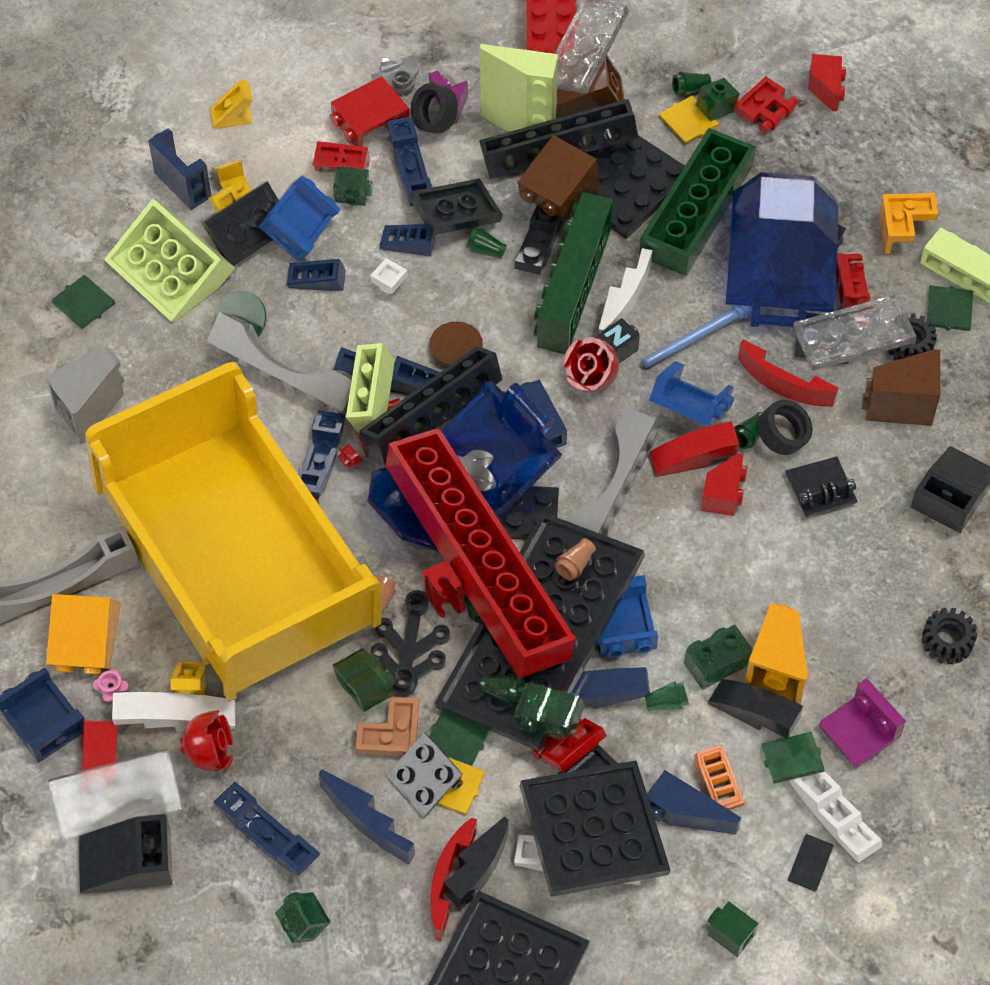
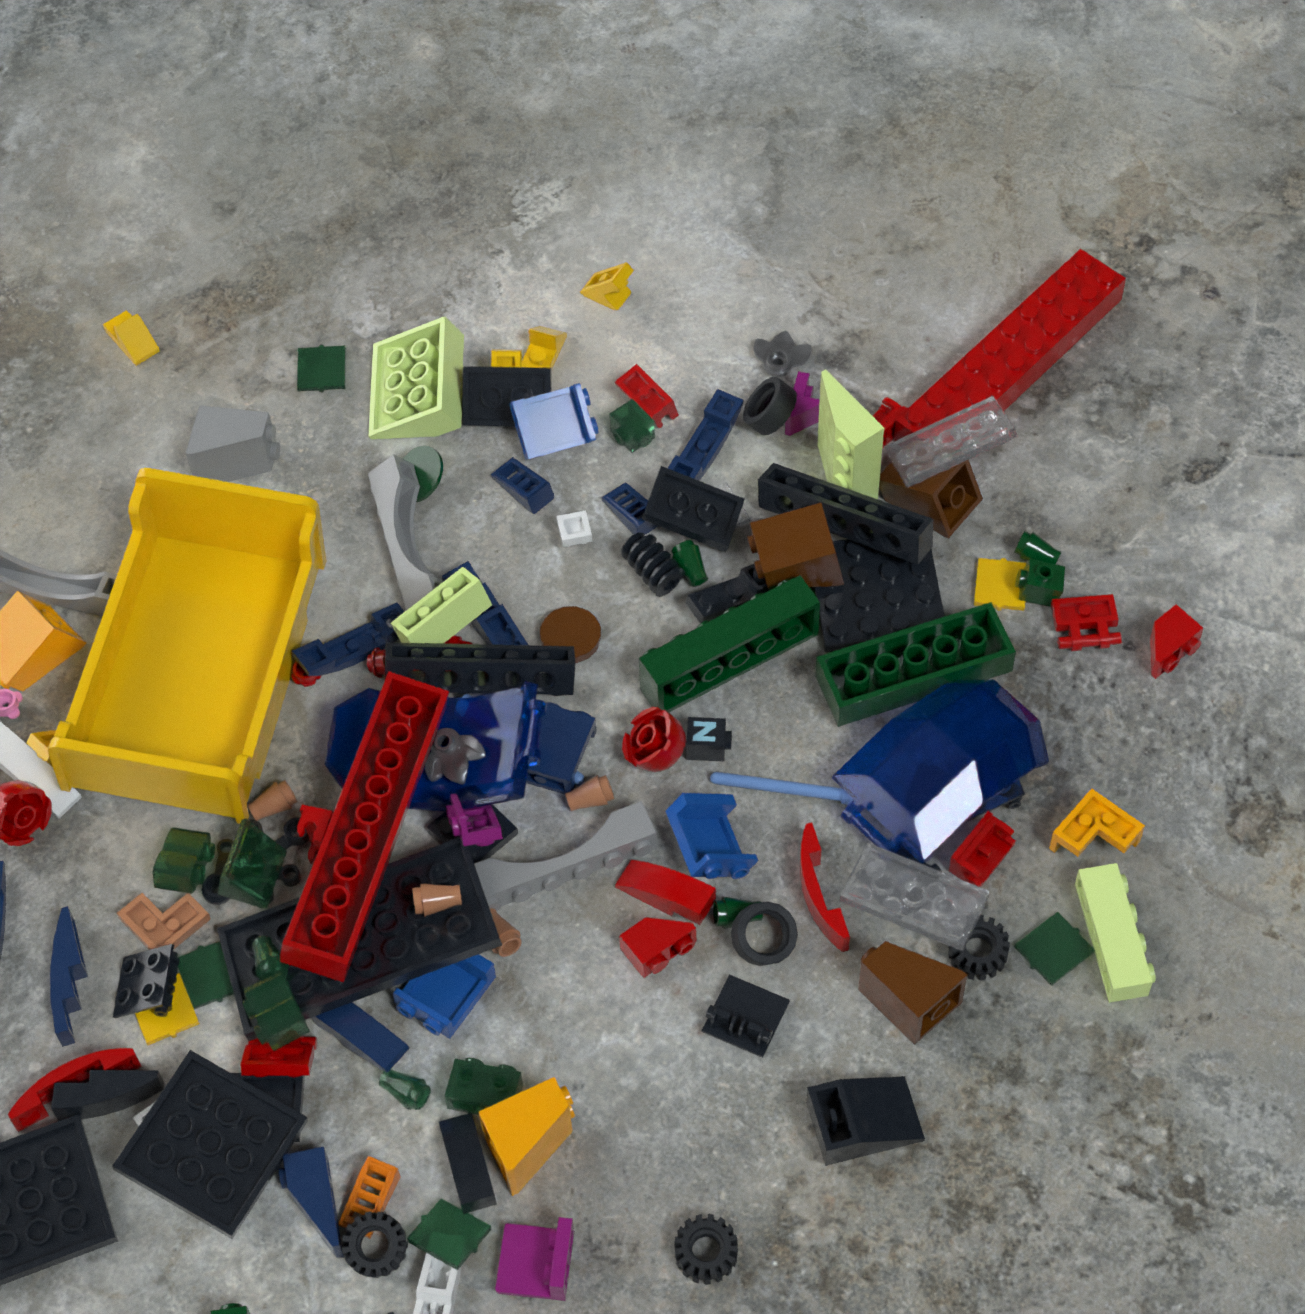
camera: 45 degrees right, 0 degrees up
(186, 182) = (501, 288): dark blue panel -> none
(367, 110) = (716, 366): red panel -> none
(415, 645) = (251, 866): none -> clear green slope
(464, 261) = (652, 563): none -> black piece
(541, 498) = (473, 825): none -> magenta bracket
(582, 430) = (590, 794): none -> nougat cone
(622, 300) = (748, 705): white slope -> none
(773, 794) = (353, 1239): none -> black tyre

